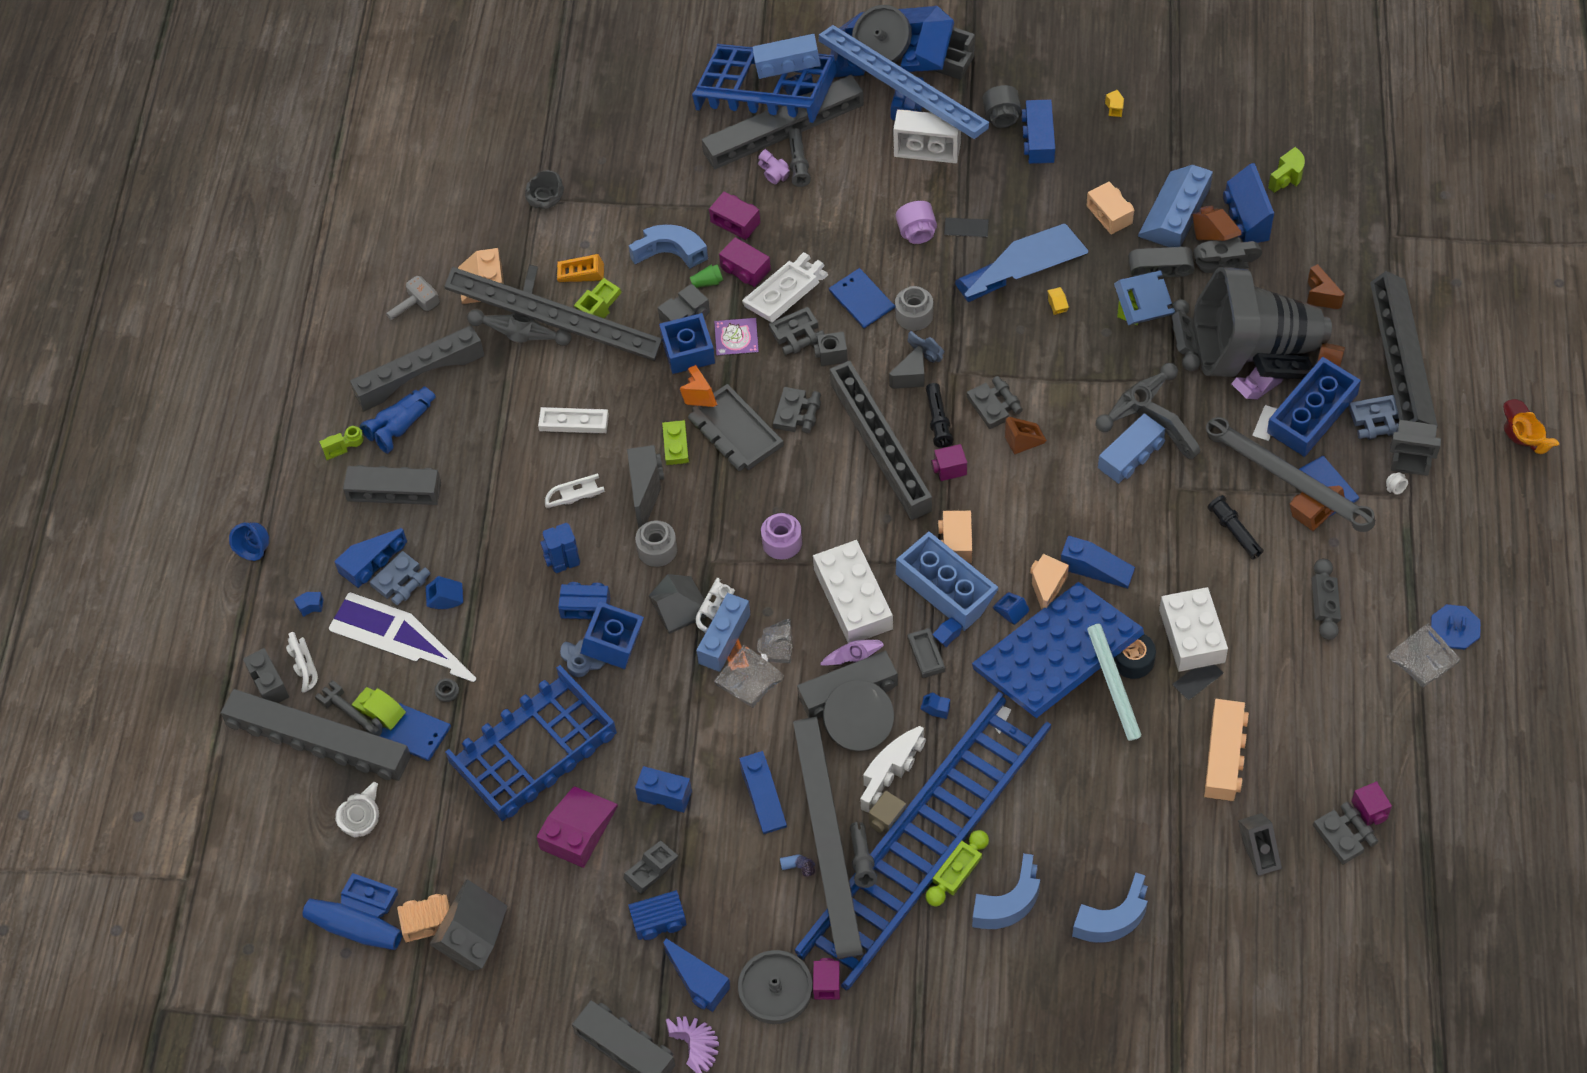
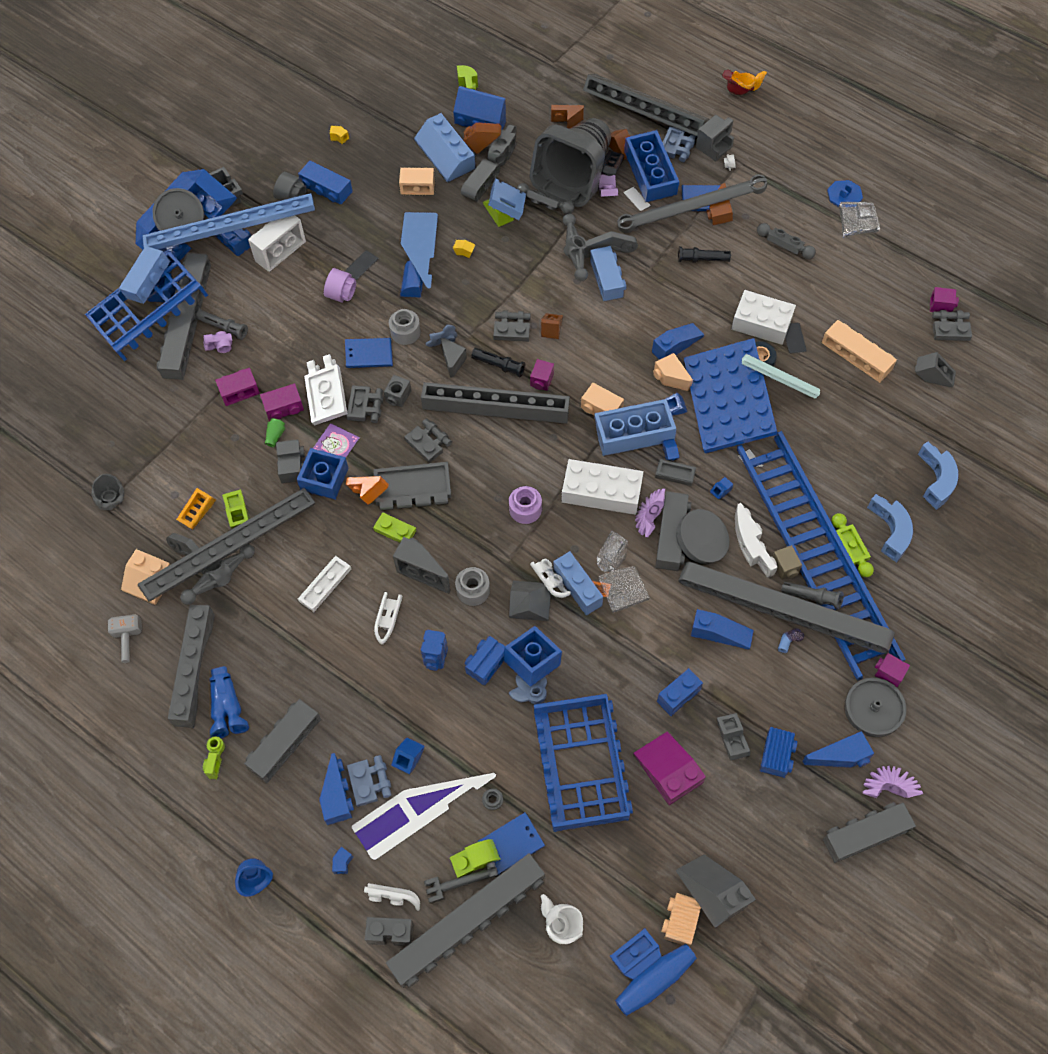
camera: 60 degrees left, 5 degrees up
(672, 240) = (224, 434): medium blue arch -> none

